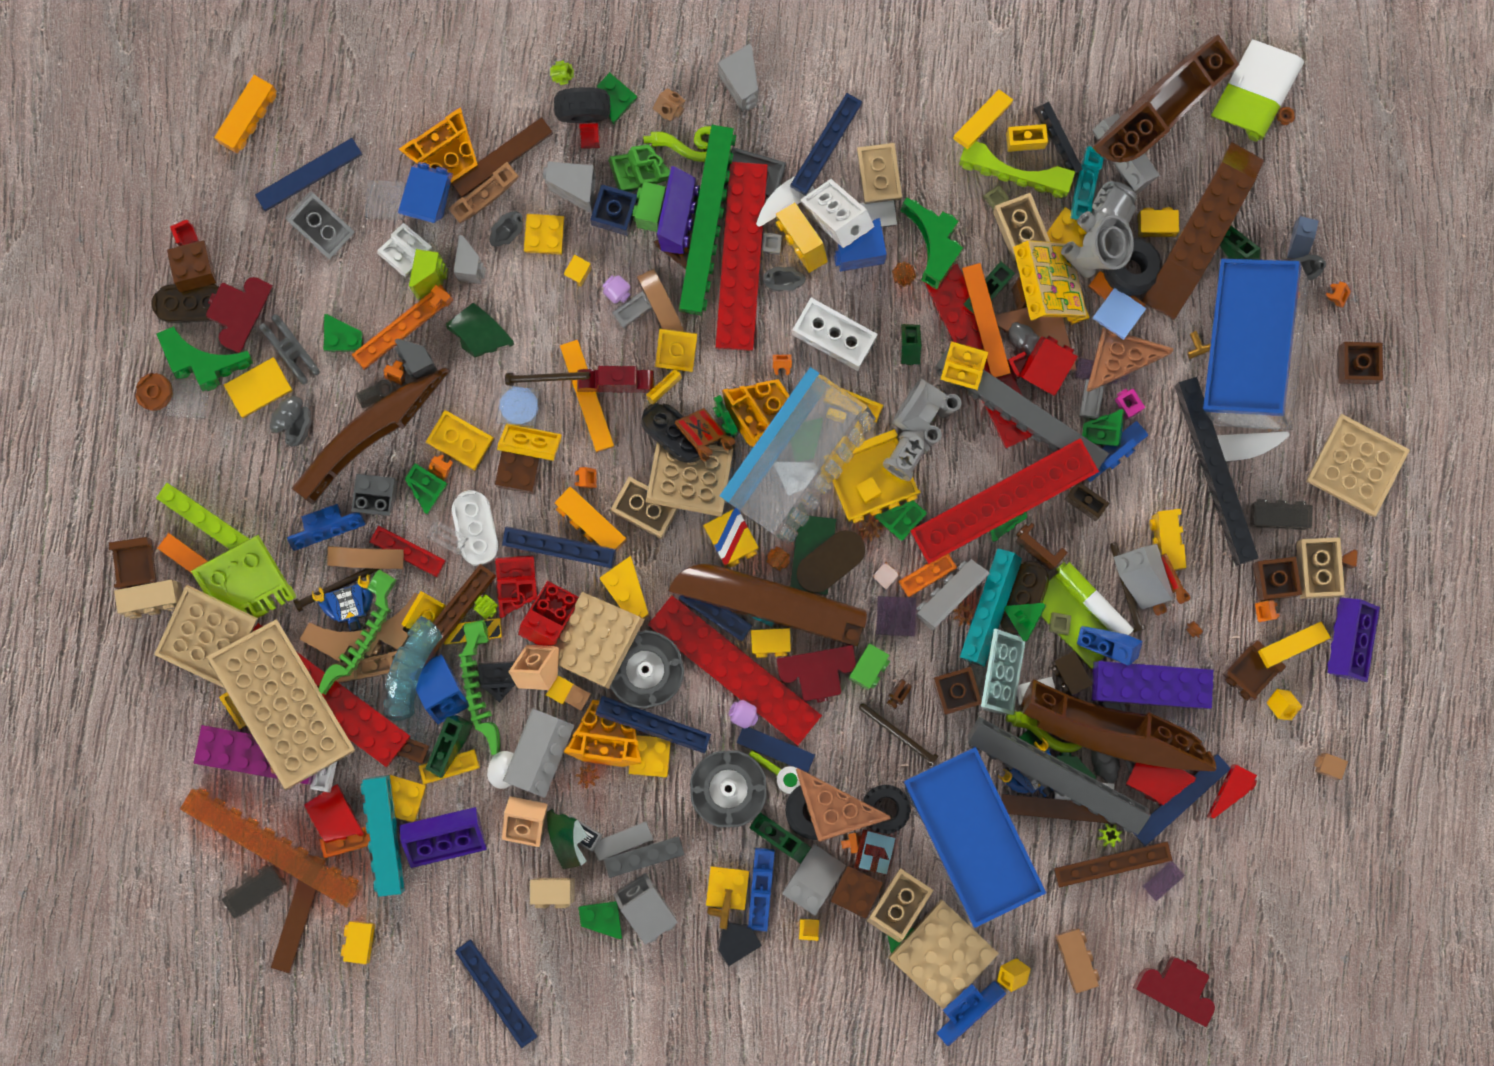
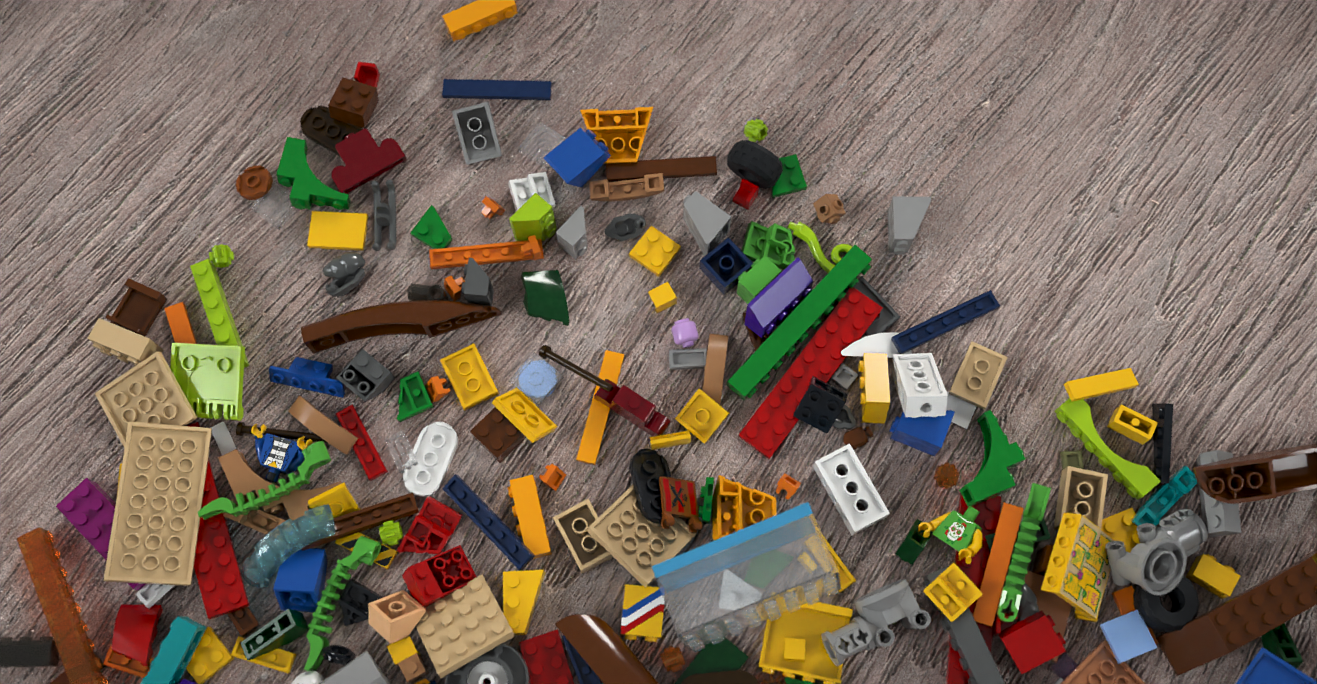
camera: 35 degrees right, 10 degrees down
(174, 473) = (221, 256): none -> lime gear
(290, 623) = (223, 438): none -> white sticker
(379, 284) = (491, 208): none -> orange tile
(511, 726) = (338, 654): none -> black gear
(767, 279) = (820, 405): none -> black bracket
(813, 287) = (857, 437): none -> reddish brown arm
(939, 315) = (957, 531): none -> torso
(998, 294) = (1032, 516): none -> bright green piece

